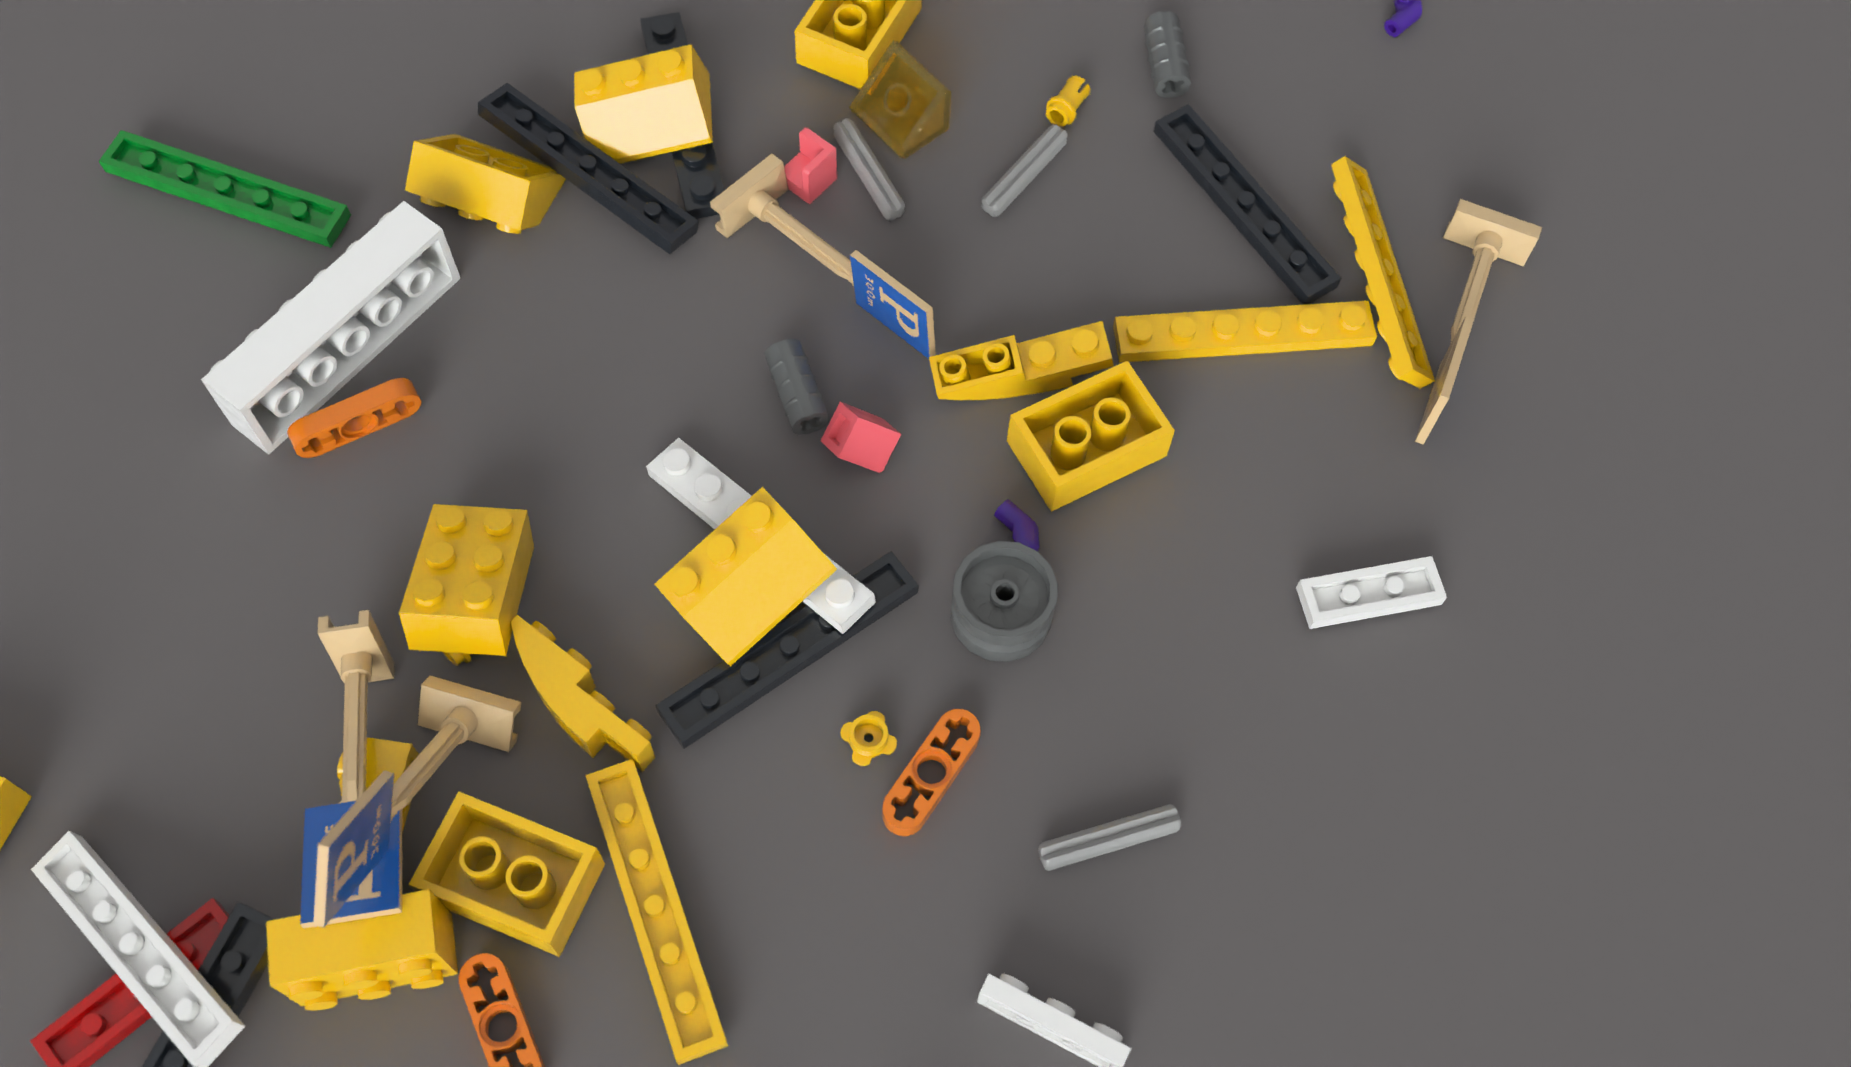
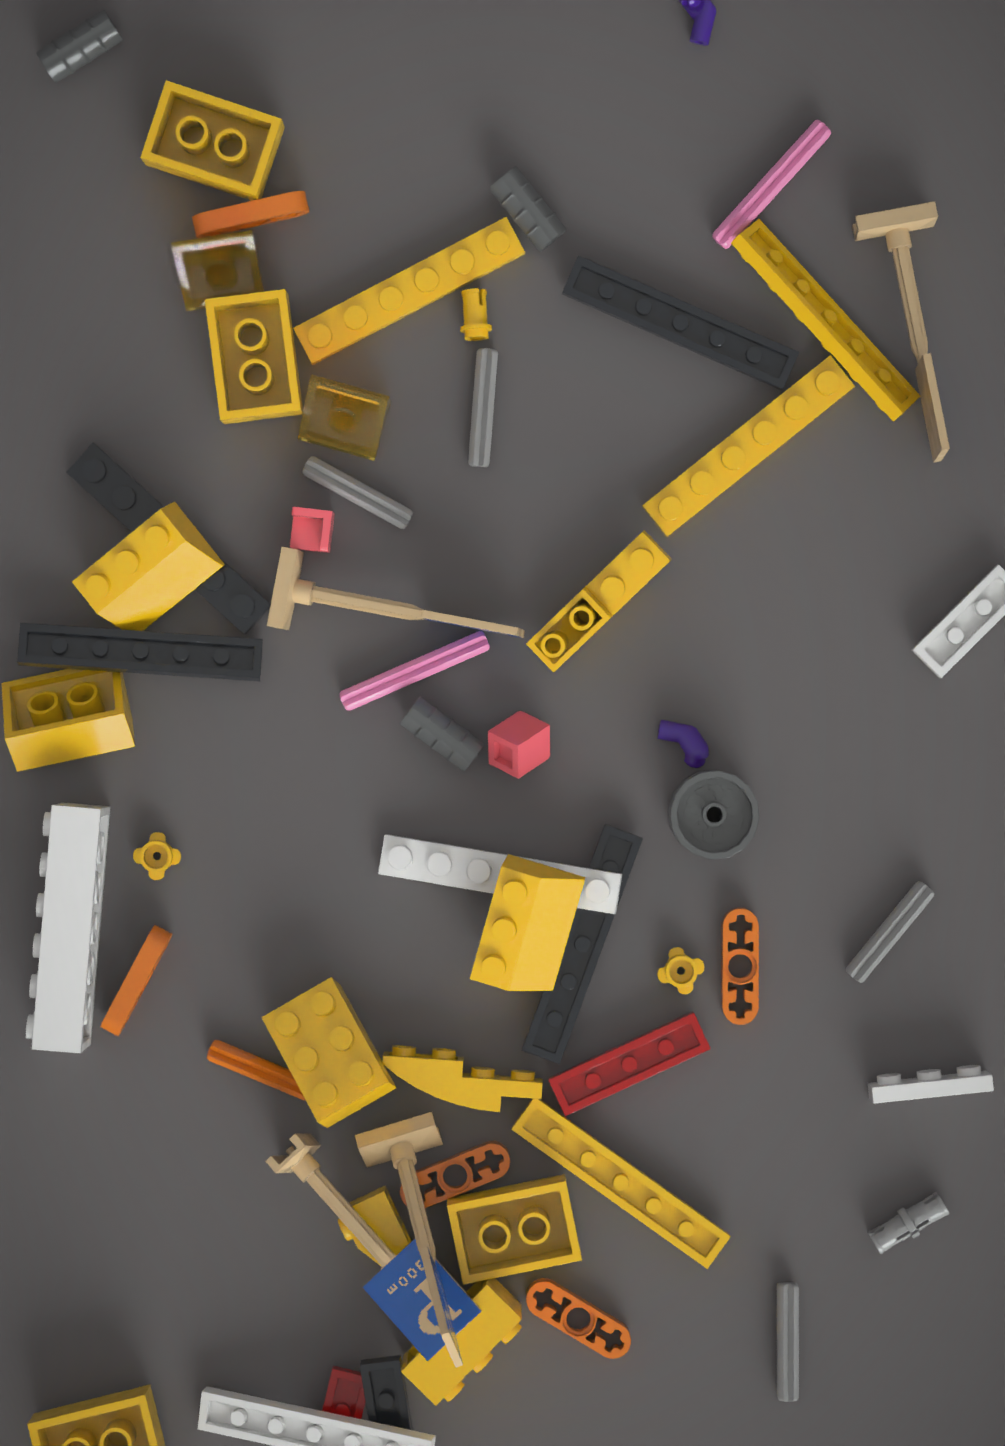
camera: 25 degrees left, 25 degrees up
(386, 553) = (253, 1067): none -> orange axle
(459, 324) = (156, 868): none -> yellow plate
(534, 785) = (486, 1172): none -> orange beam
(751, 792) = (629, 1063): none -> red plate
(811, 327) = (414, 670): none -> bright pink axle
(1026, 59) = (409, 290): none -> yellow plate
(1089, 435) = (691, 634): yellow brick -> none
(1399, 151) = (771, 183): none -> bright pink axle

